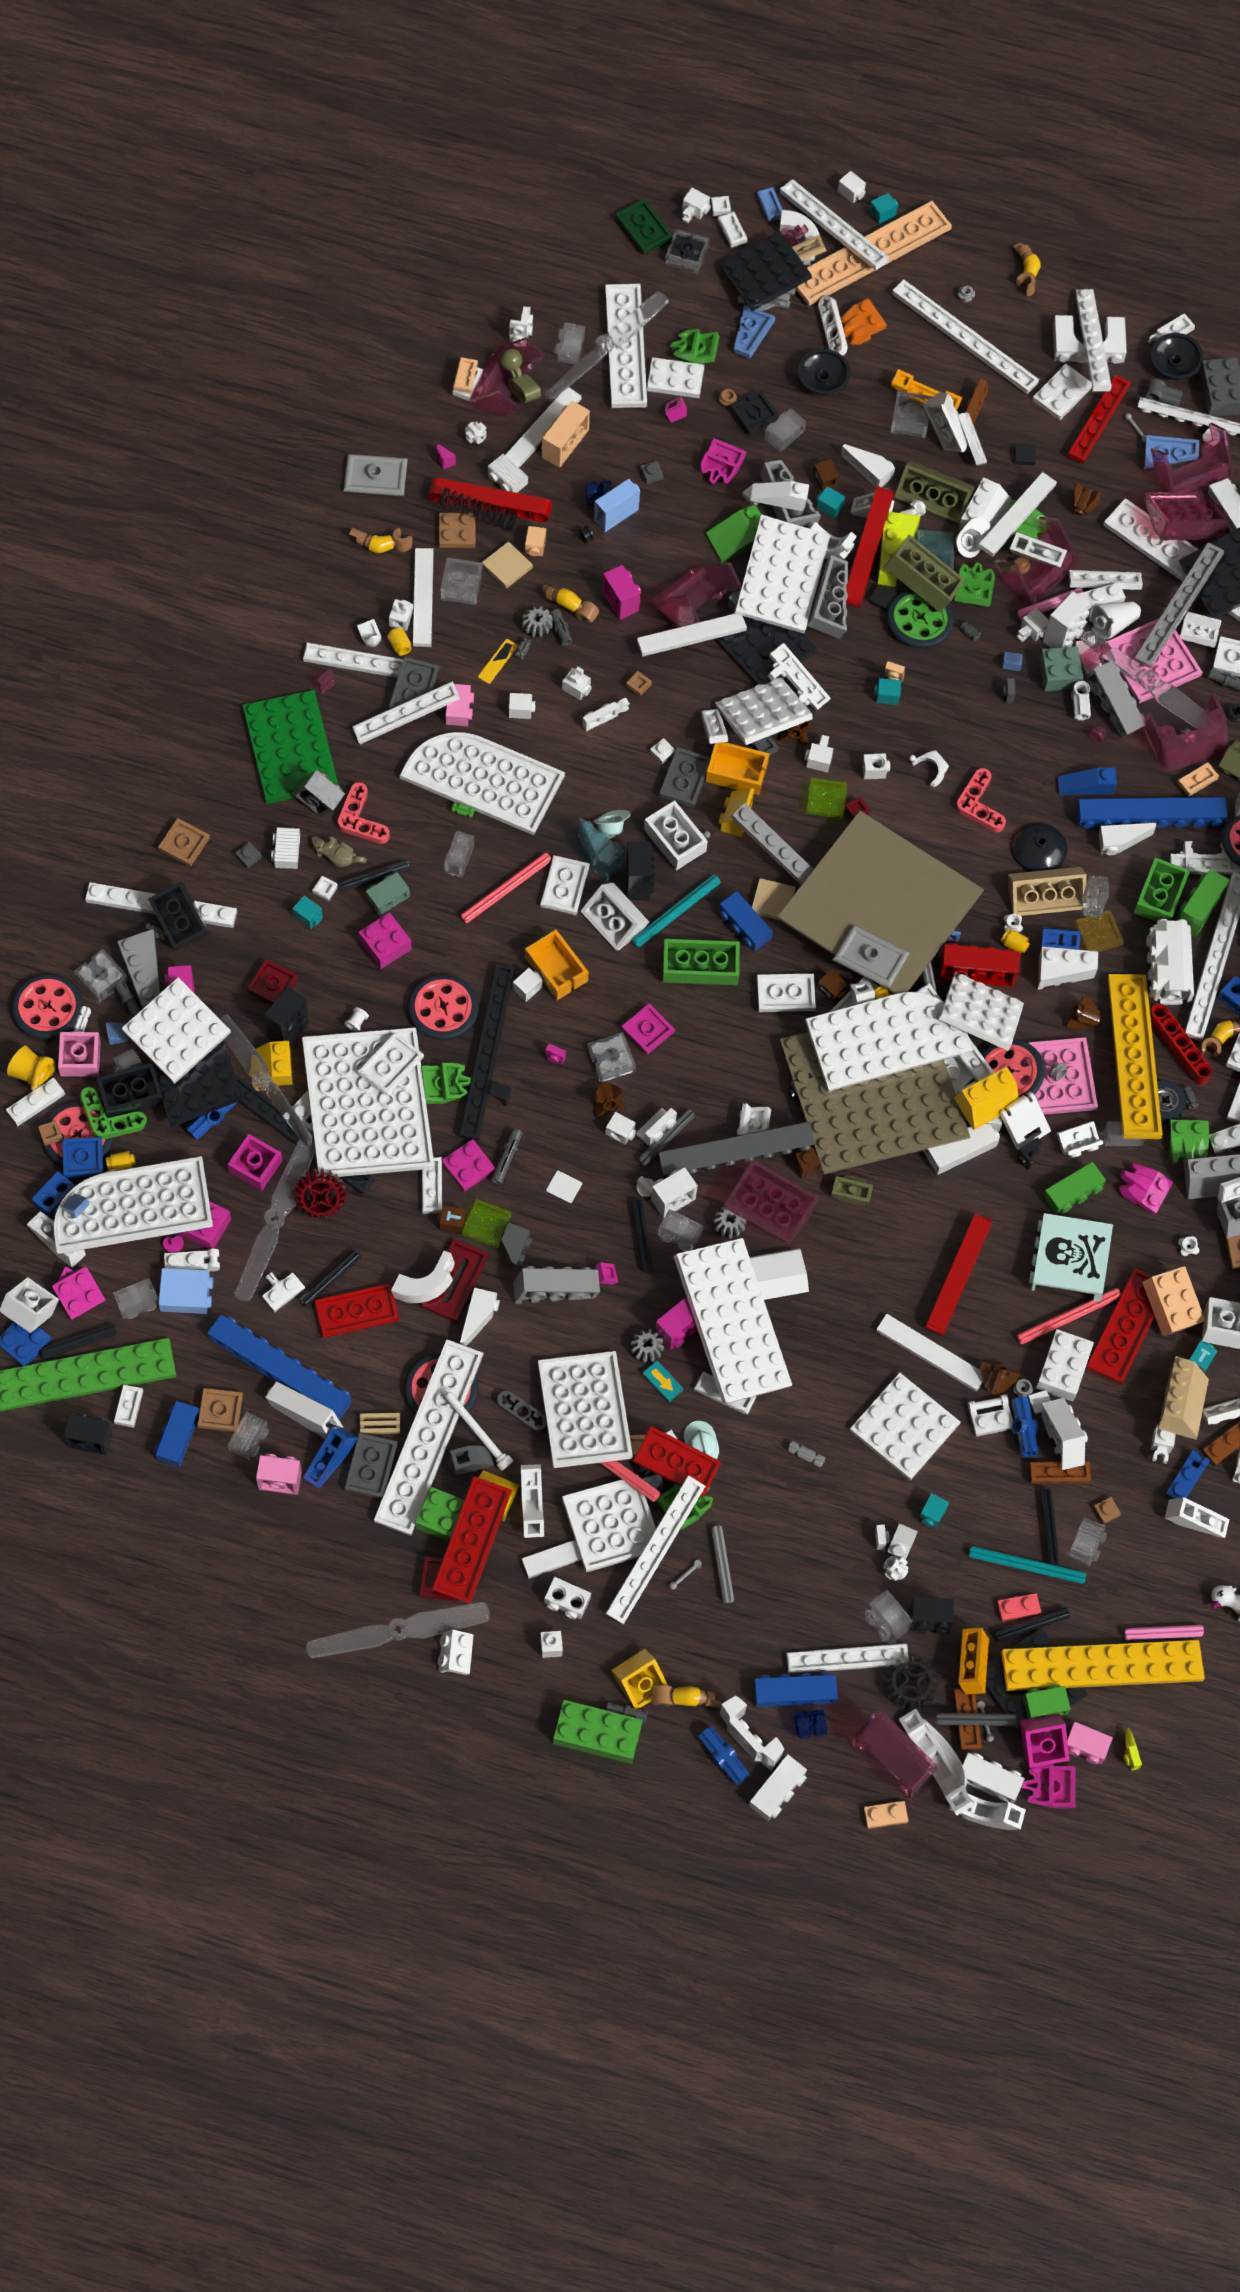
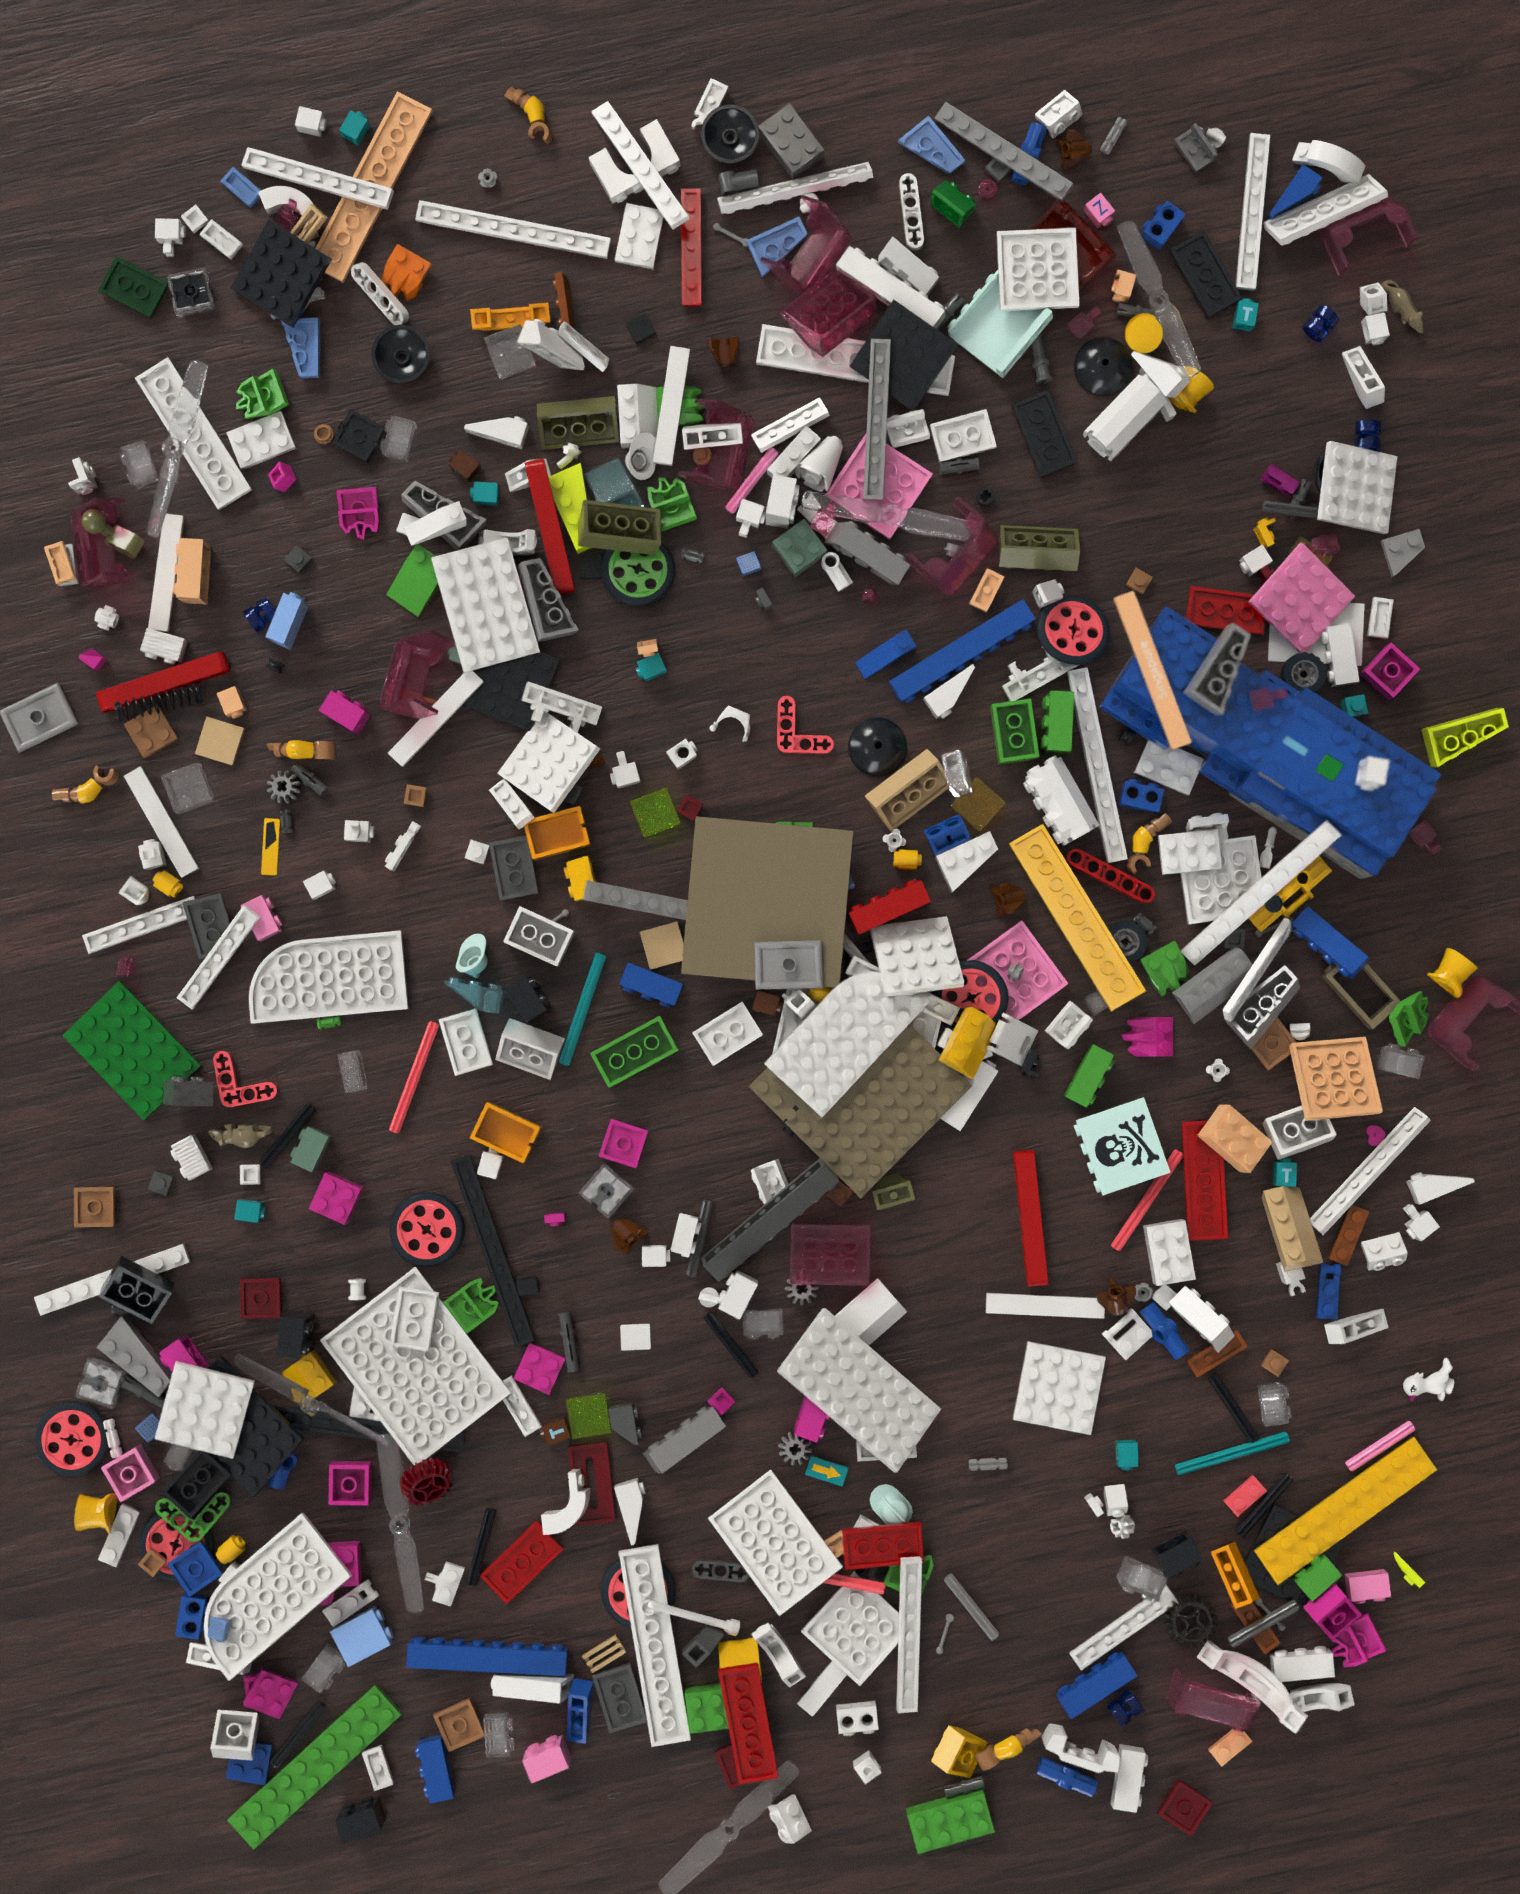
camera: 25 degrees left, 20 degrees up
(814, 1844) = (1184, 1807): none -> dark red plate

